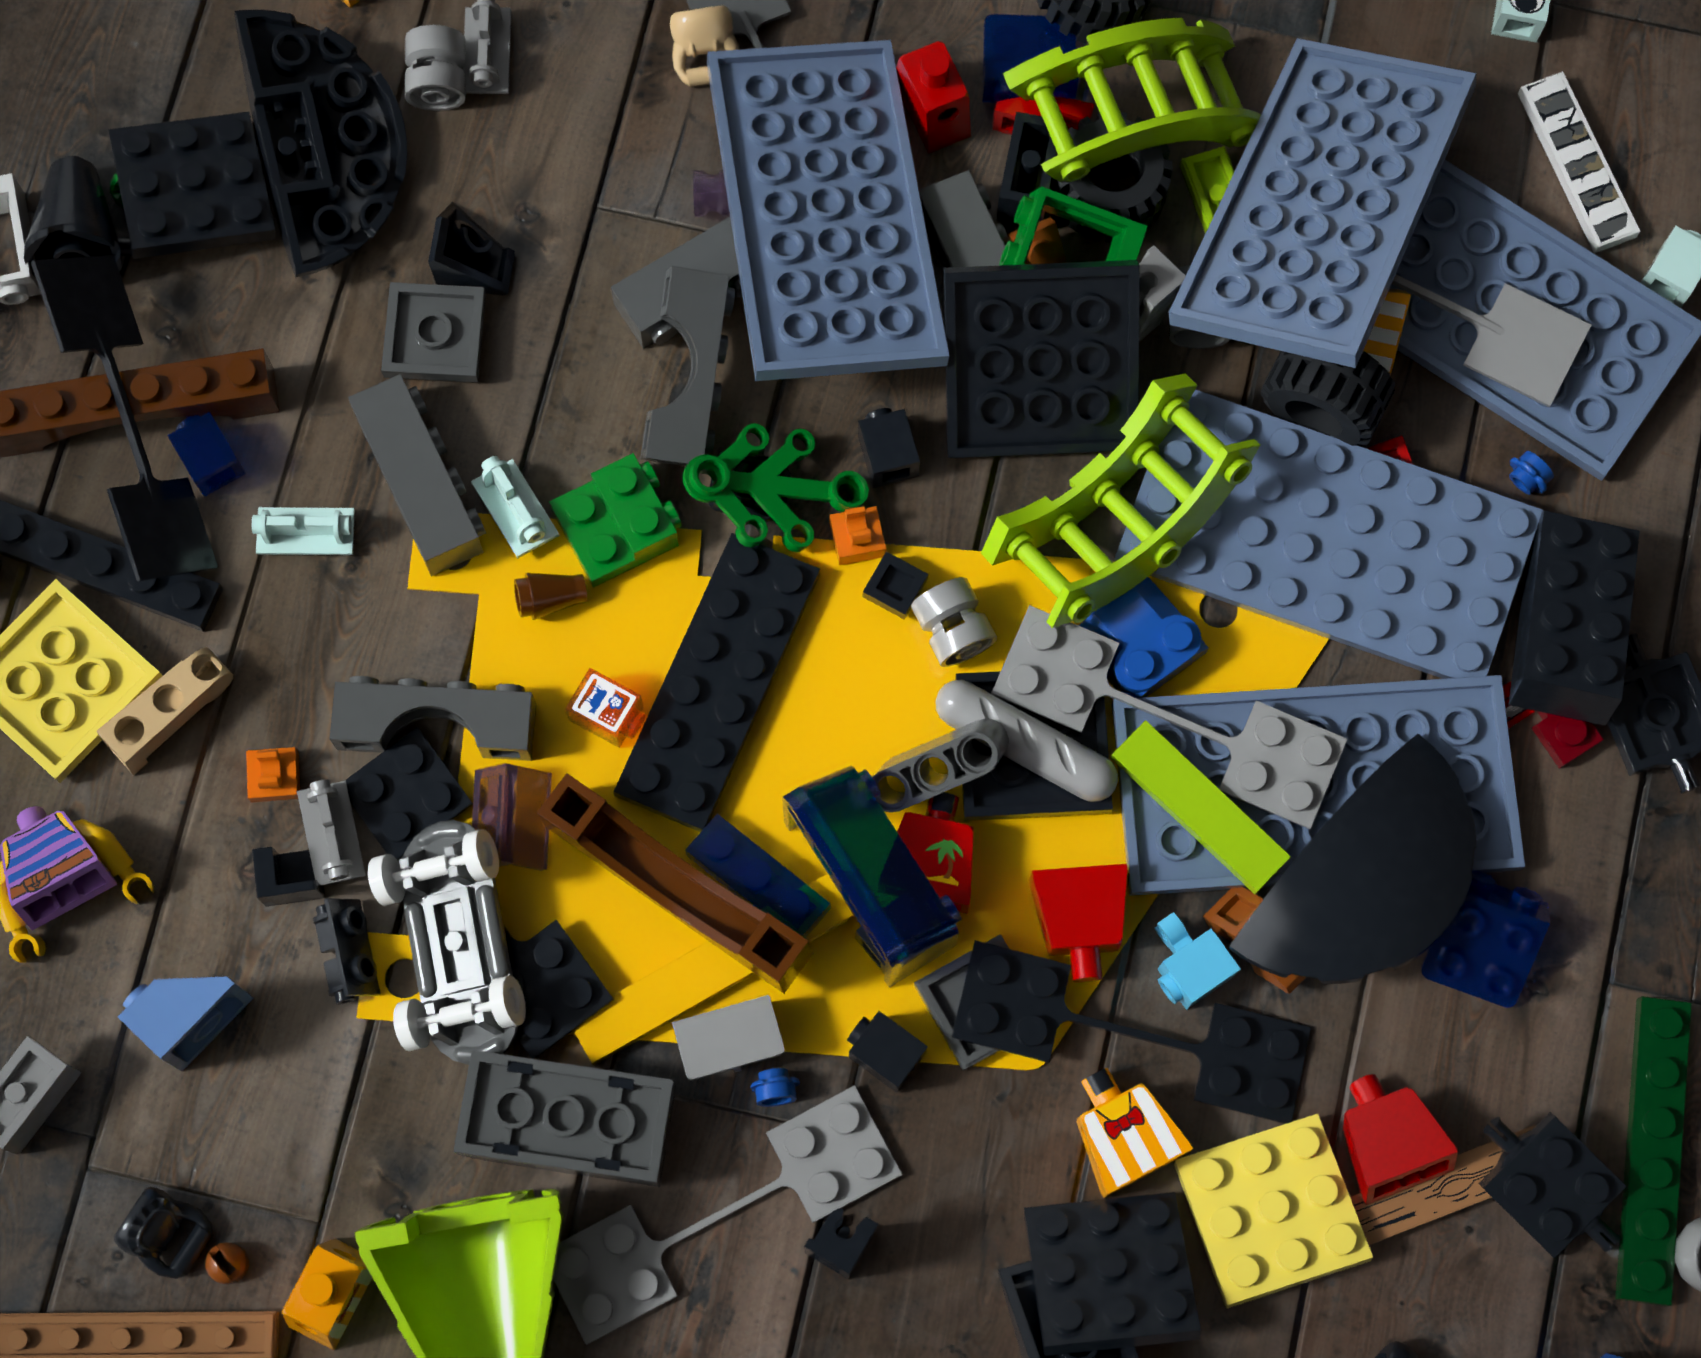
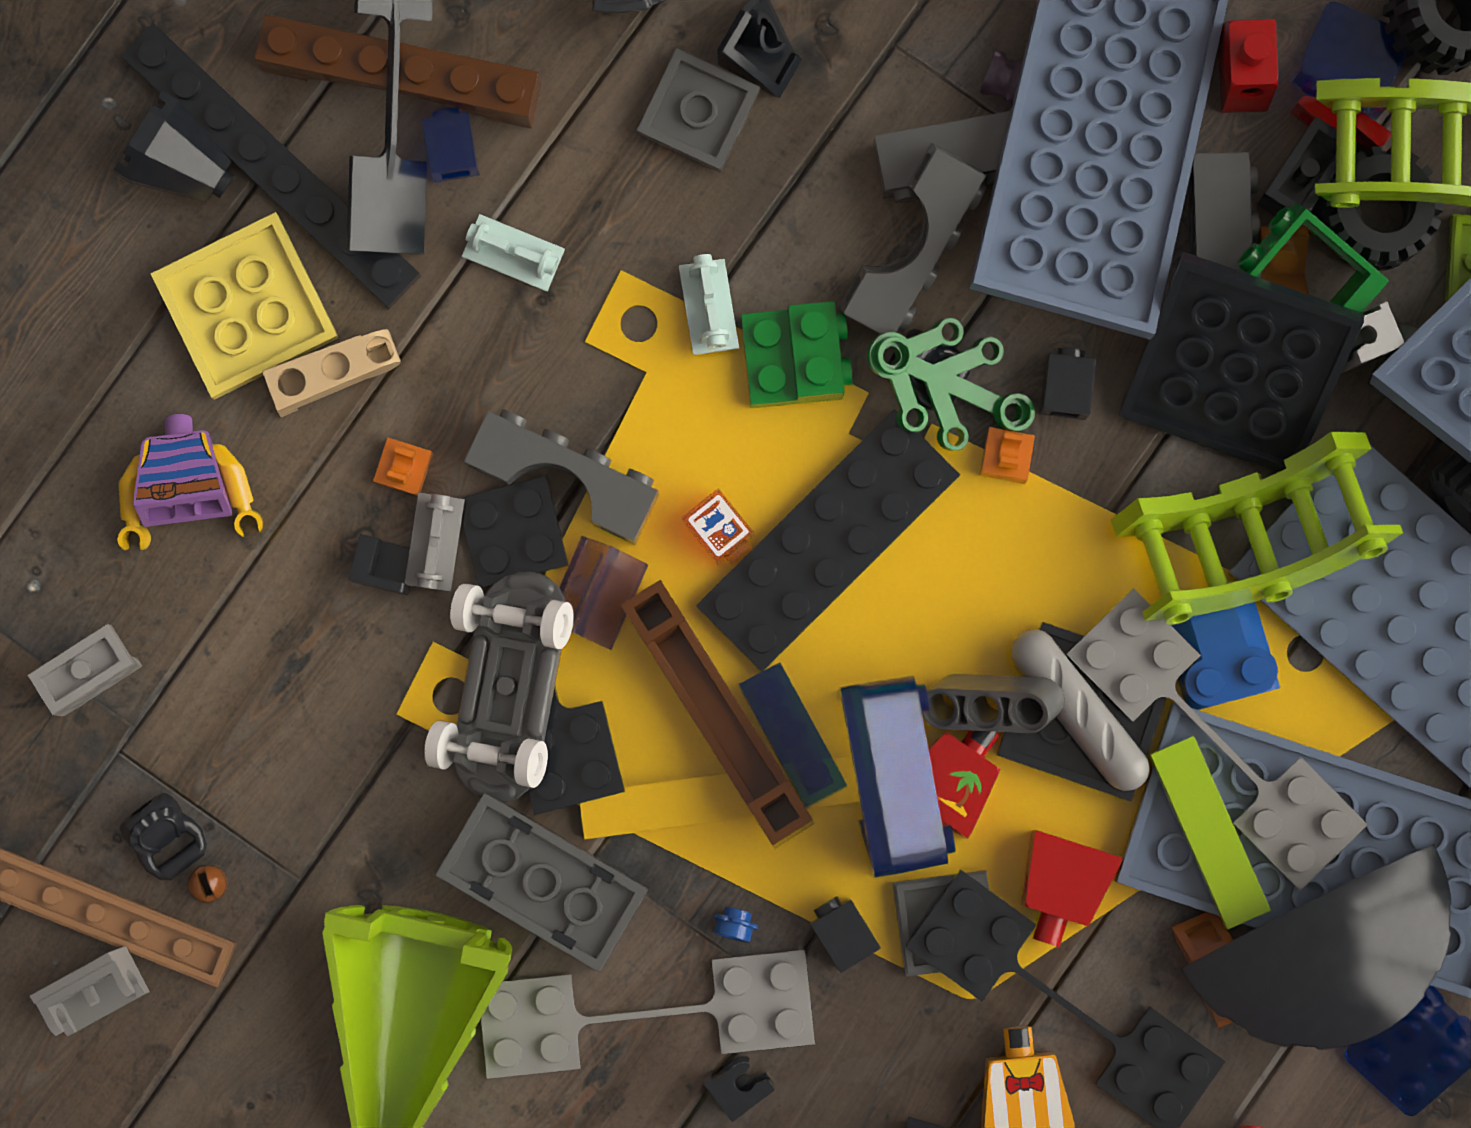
camera: 25 degrees right, 10 degrees up
(182, 1014) = (243, 659): medium blue slope -> none
(327, 1293) = (285, 946): light orange torso -> none
(343, 928) = (413, 631): black hinge -> none
(417, 475) = (631, 241): dark grey brick -> none
(548, 593) = (707, 400): reddish brown cone -> none
(728, 1038) = (711, 869): light grey panel -> none
(895, 585) = (1021, 517): black plate -> none
(945, 607) = (1059, 557): light grey wheel -> none
(1196, 964) = (1147, 969): medium azure brick -> none

